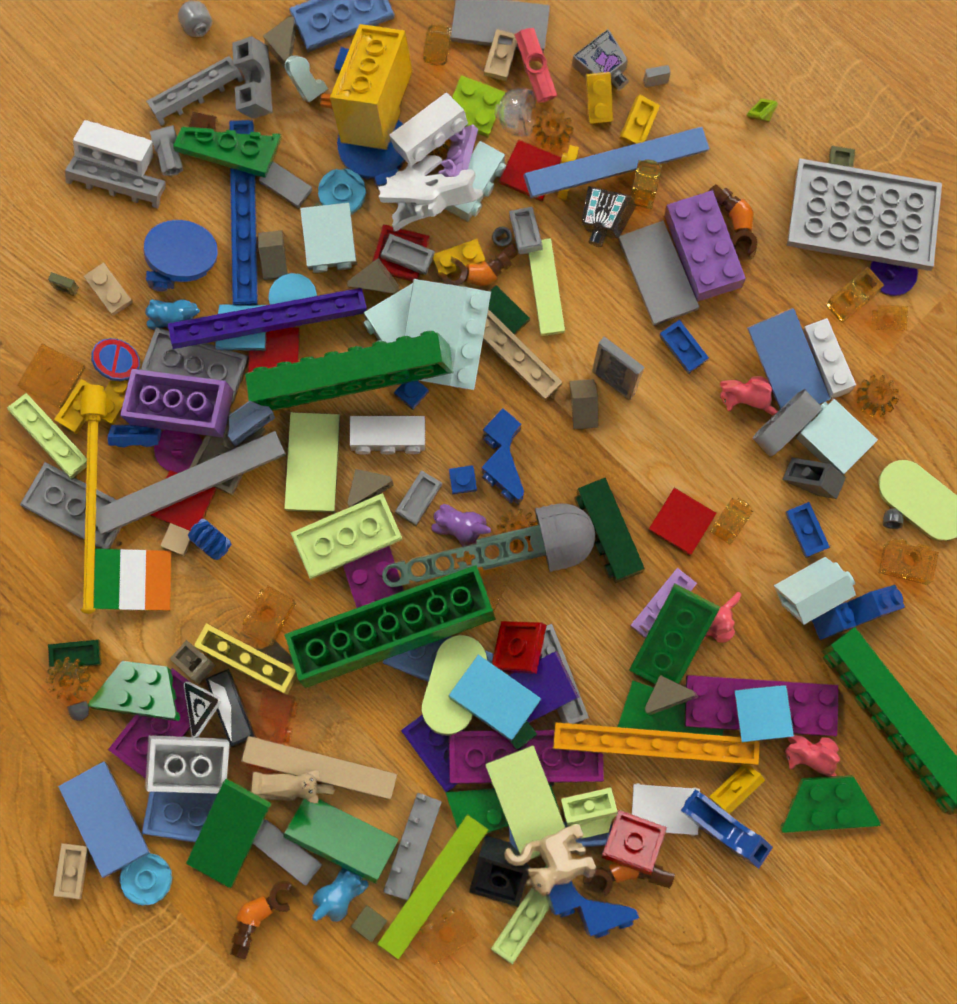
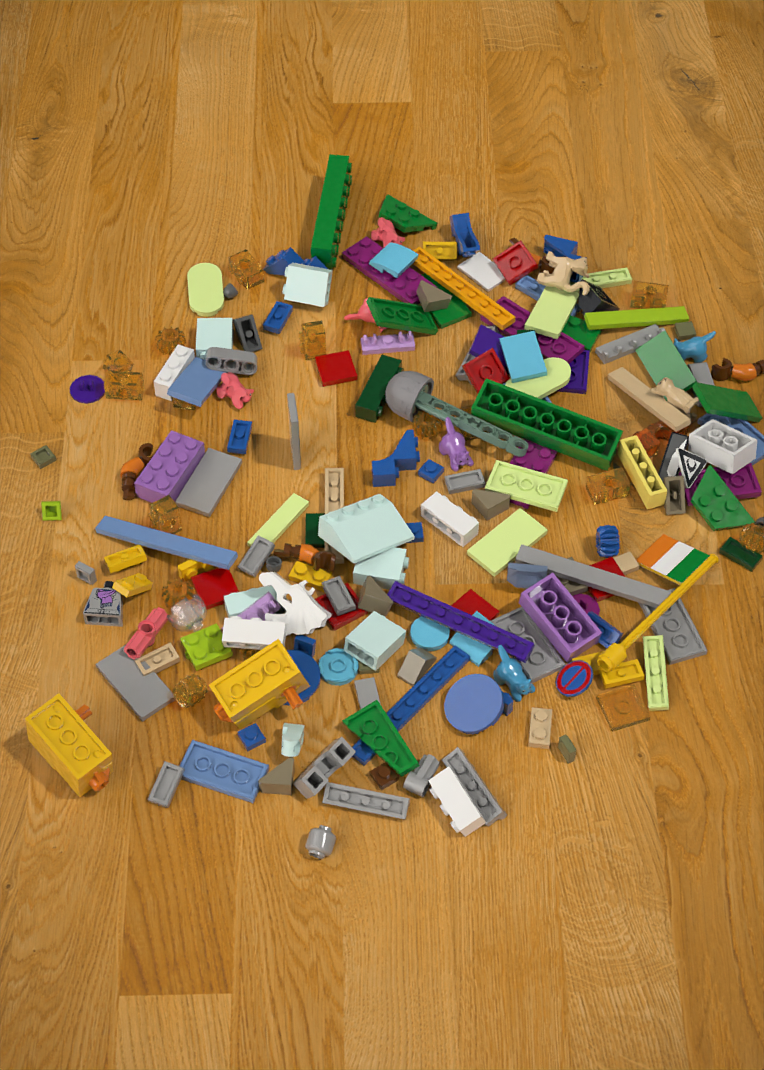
camera: 135 degrees left, 25 degrees down
(350, 371) = (443, 543): green brick -> none
(584, 404) = (322, 454): dark tan slope -> none
(591, 811) = (522, 291): yellowish green slope -> none
(606, 214) = (204, 523): torso -> none
(865, 214) = (69, 417): light grey plate -> none

